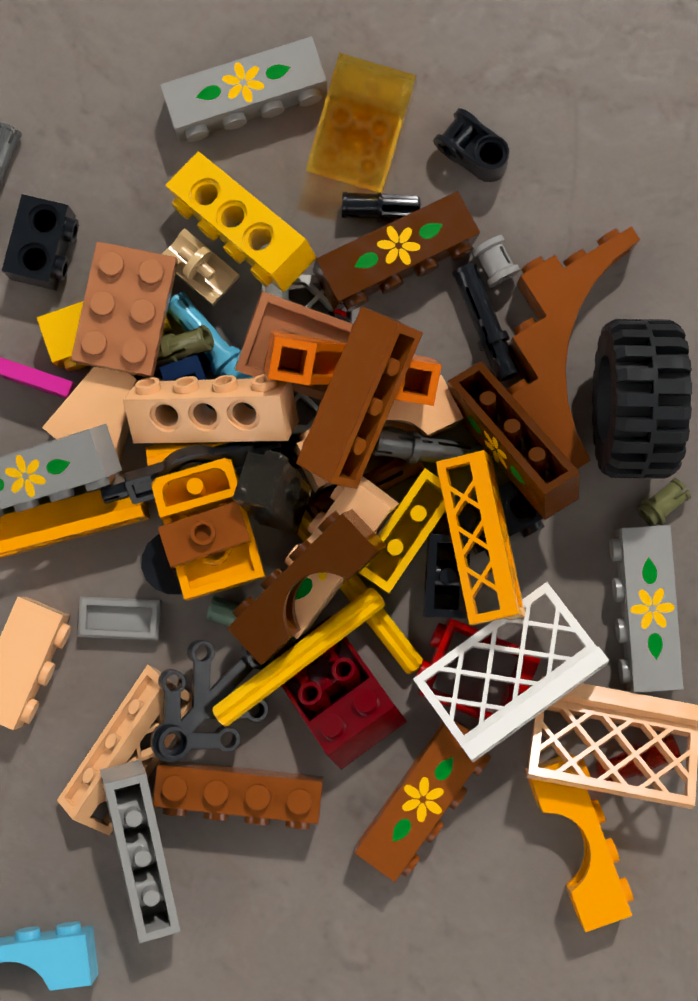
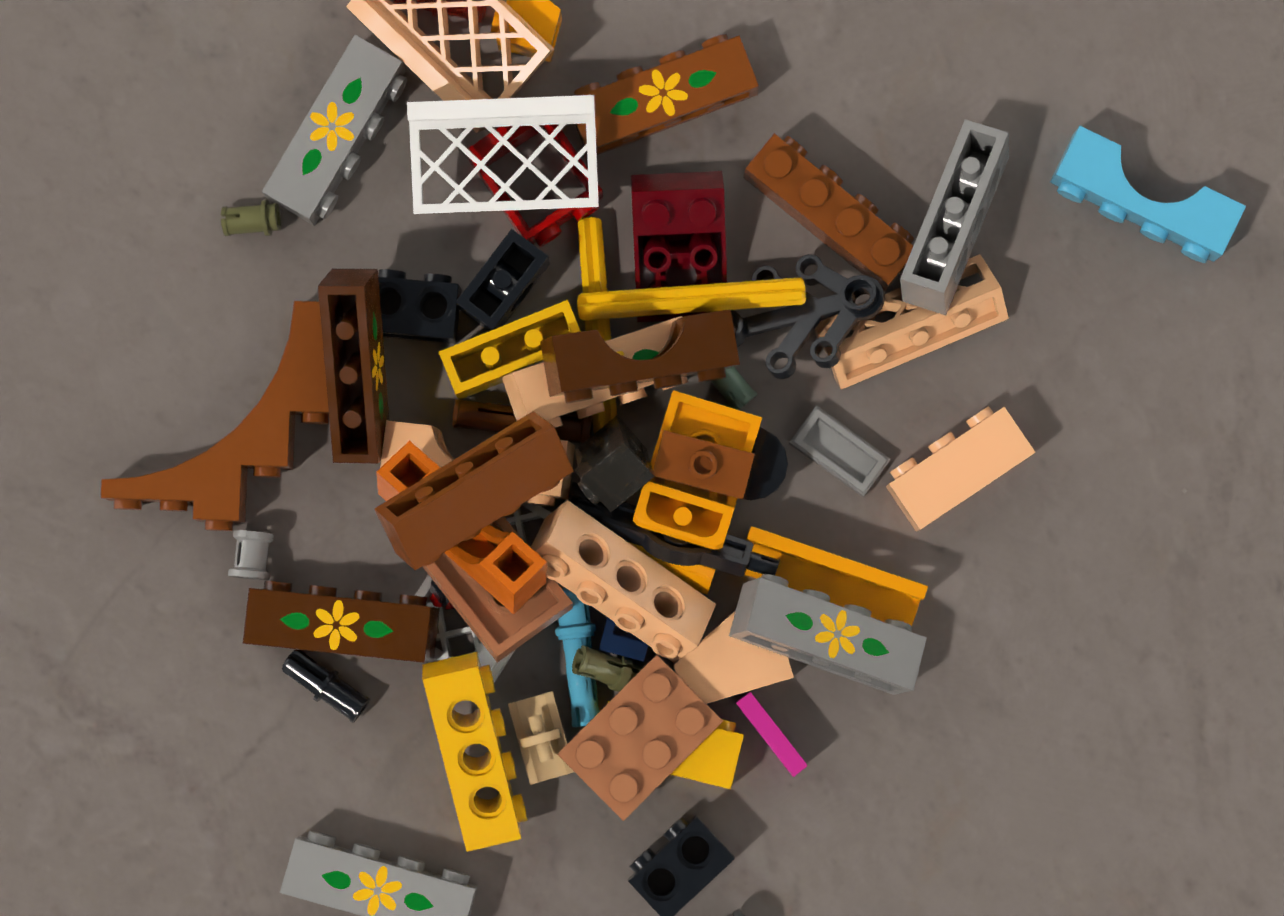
camera: 145 degrees left, 0 degrees up
(361, 123) = (290, 774): clear yellow slope -> none
(415, 448) = (451, 422): dark grey pin -> none
(467, 141) = (195, 685): black piece -> none
(491, 336) = (301, 501): black pin -> none
(496, 536) = (431, 286): light orange fence -> none
(641, 398) = (211, 322): black tyre -> none

